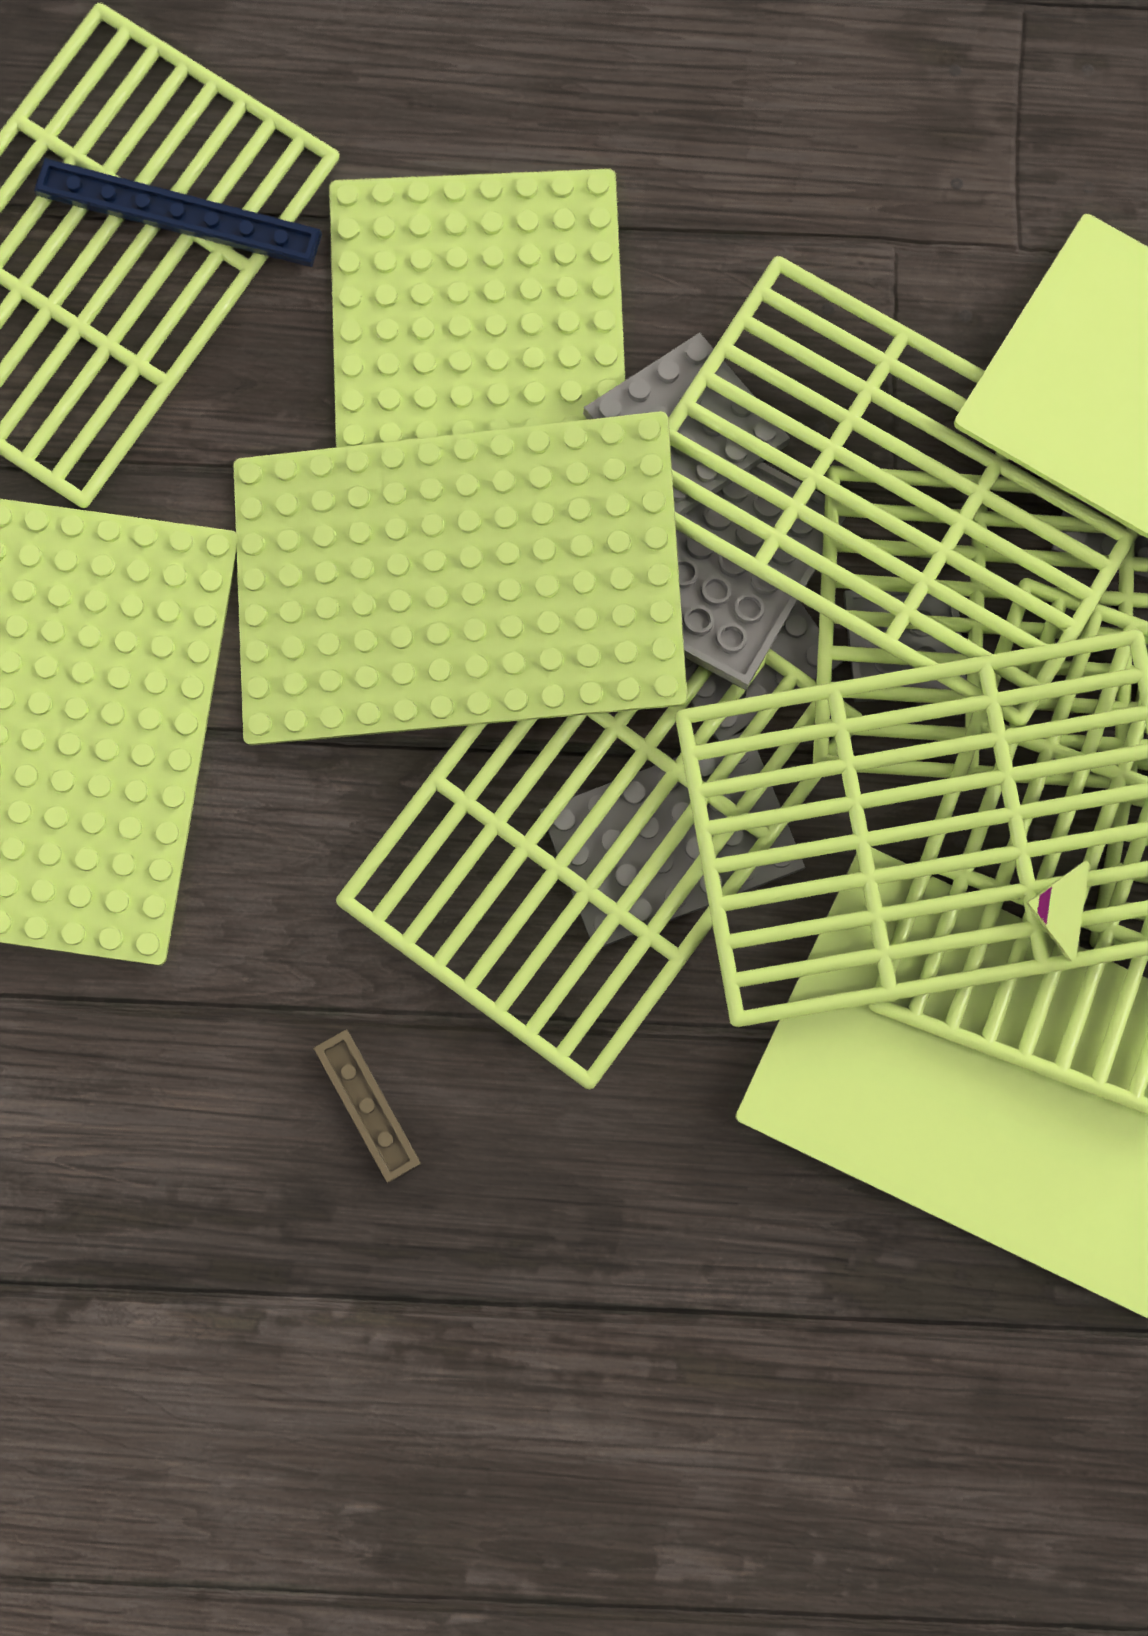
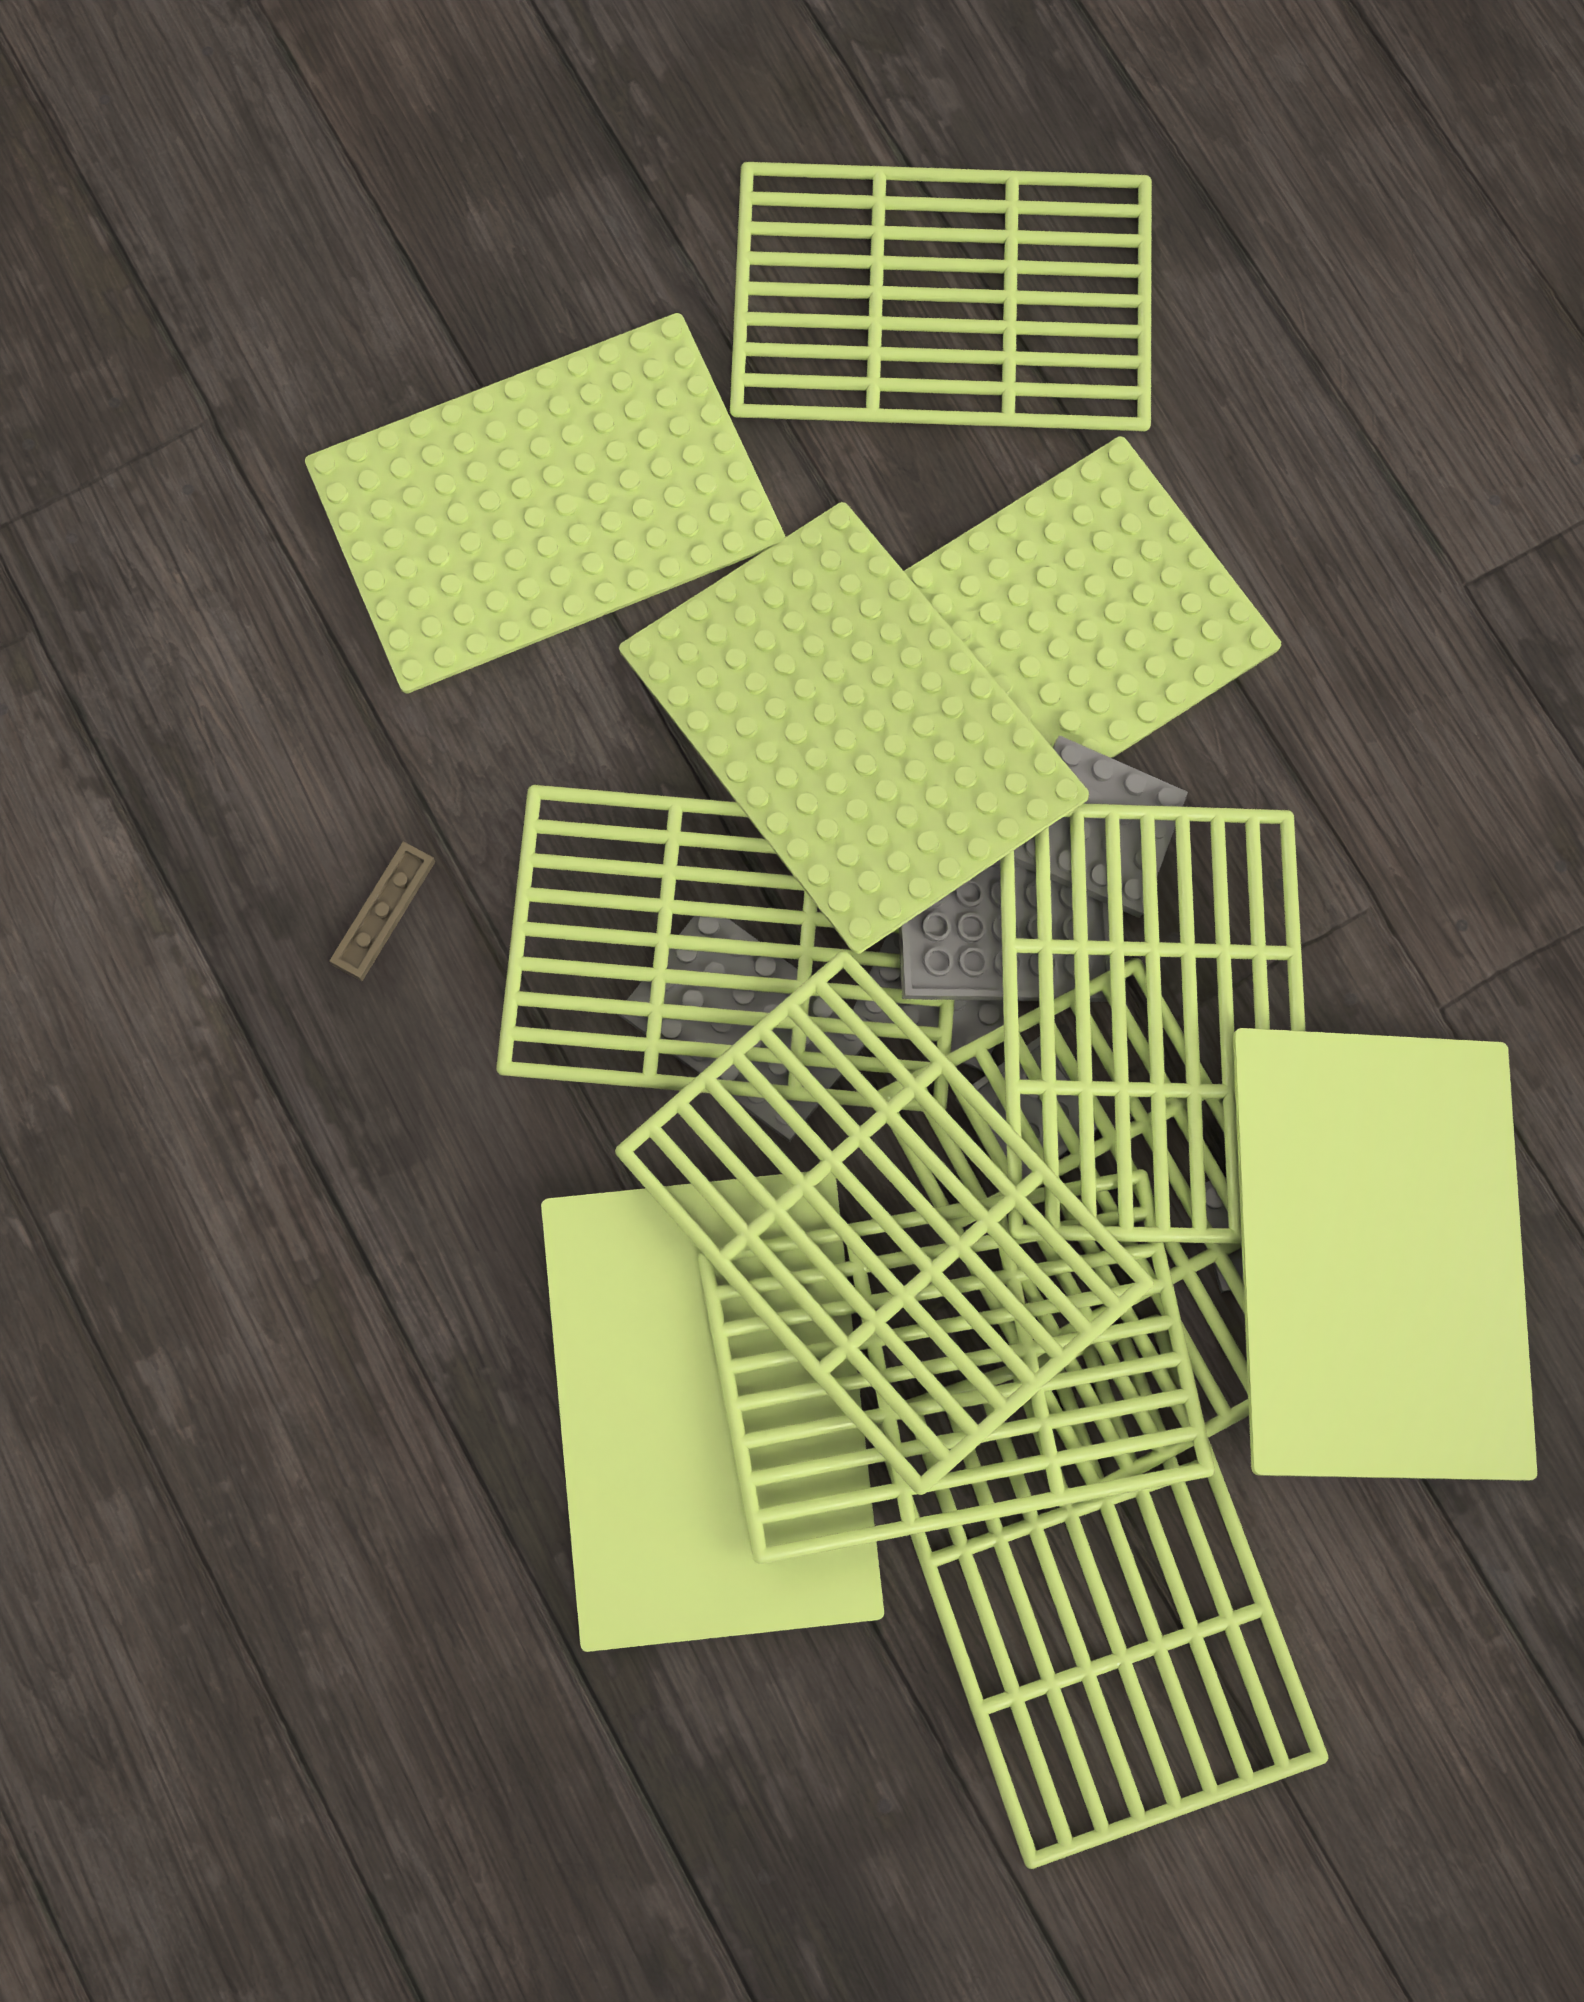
camera: 55 degrees right, 5 degrees down
(178, 212) = (1016, 338): dark blue tile -> none
(1061, 909) = (872, 1355): yellowish green tile -> none

